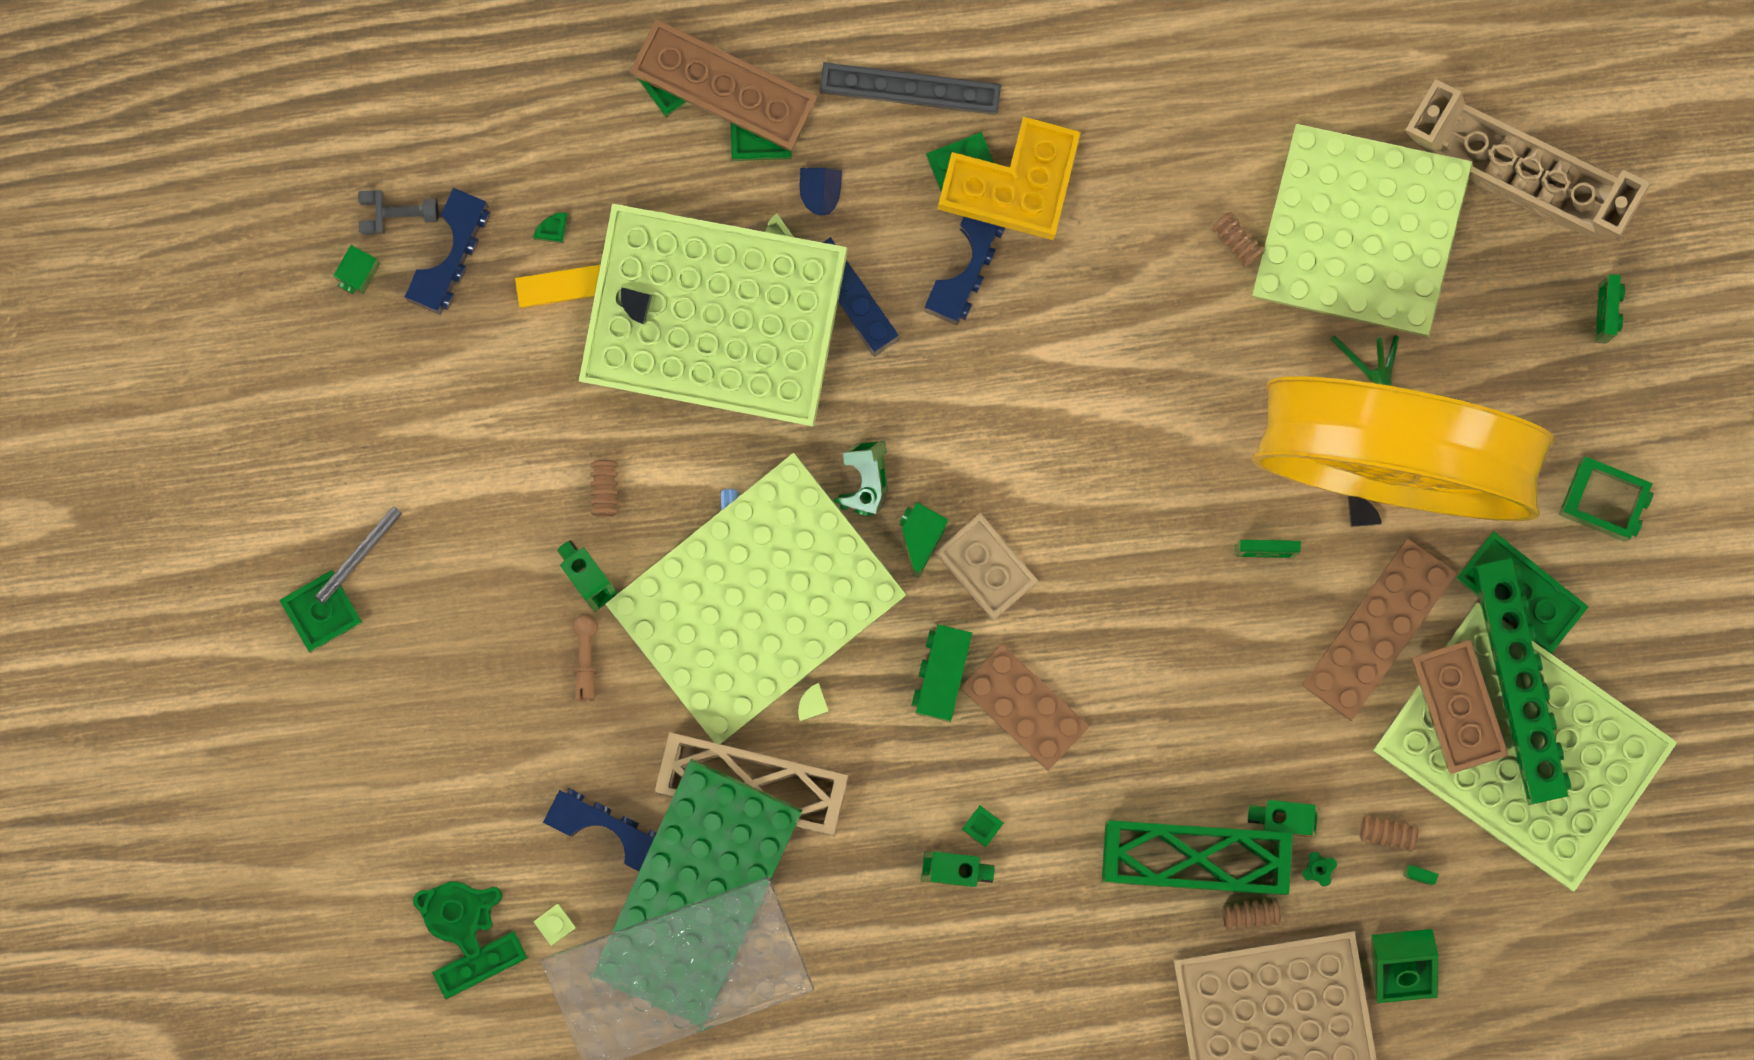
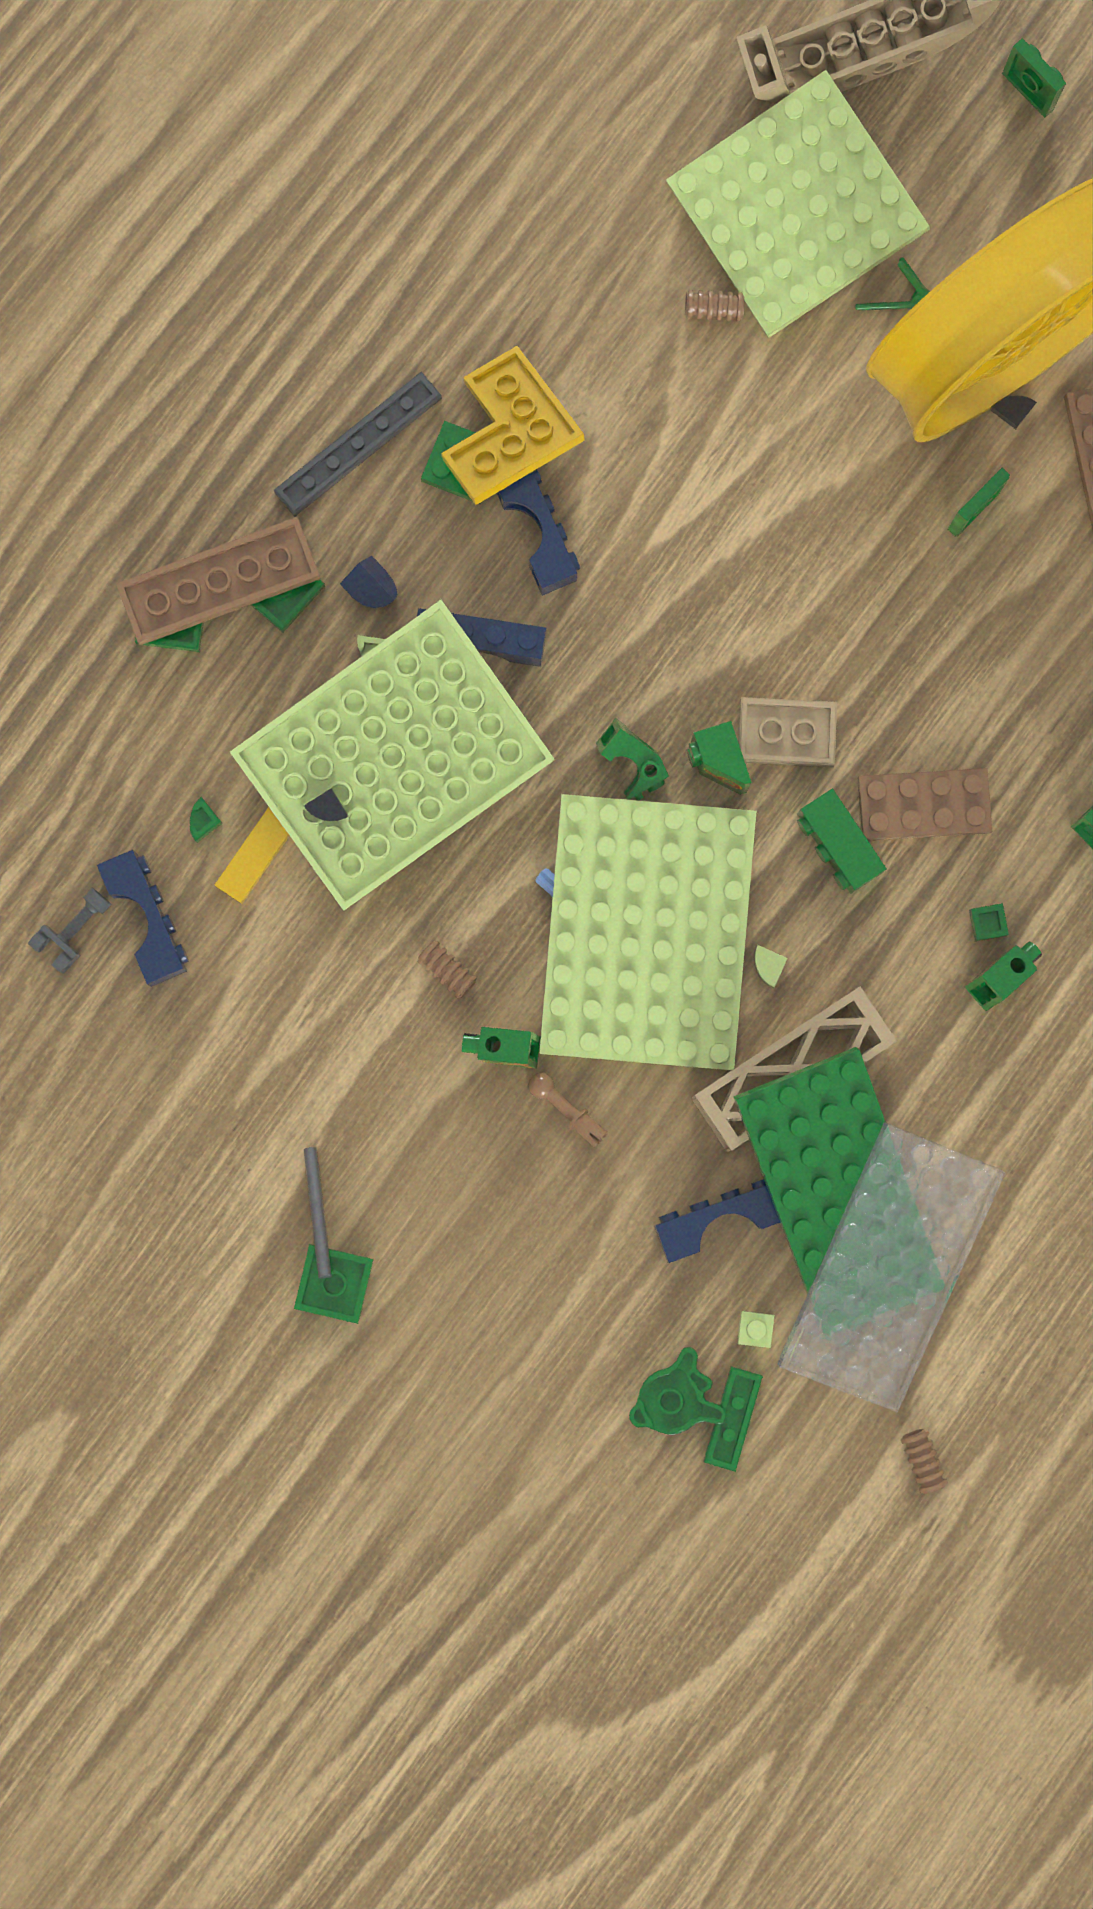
camera: 50 degrees left, 0 degrees up
(356, 270) = (88, 1003): green brick -> none

